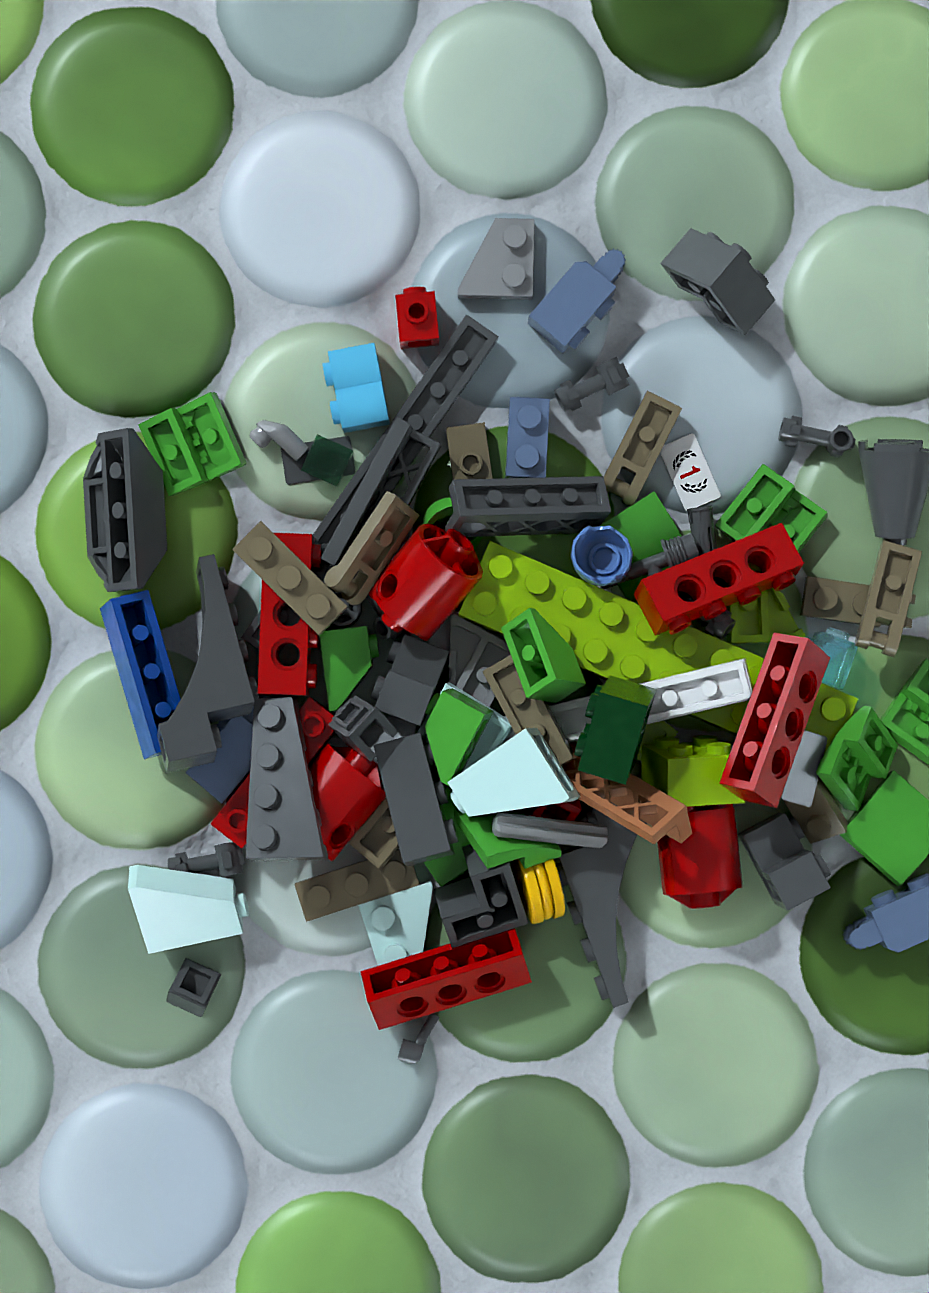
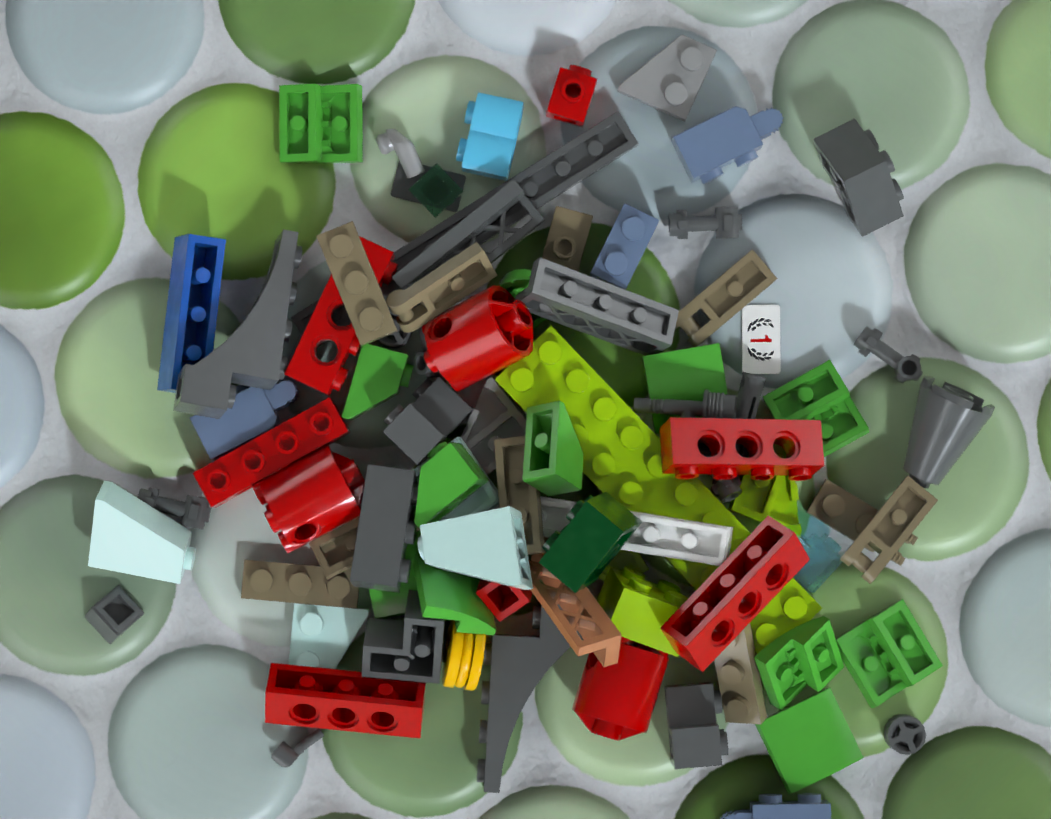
camera: 30 degrees right, 0 degrees up
(124, 511) = (233, 159): dark grey wedge -> none
(281, 798) = (267, 473): dark grey wing -> none
(353, 720) = (361, 434): dark grey window -> none
(549, 830) = (493, 607): light grey axle -> none
(601, 555) = (645, 381): medium blue hair -> none
(803, 777) = (740, 653): sticker -> none

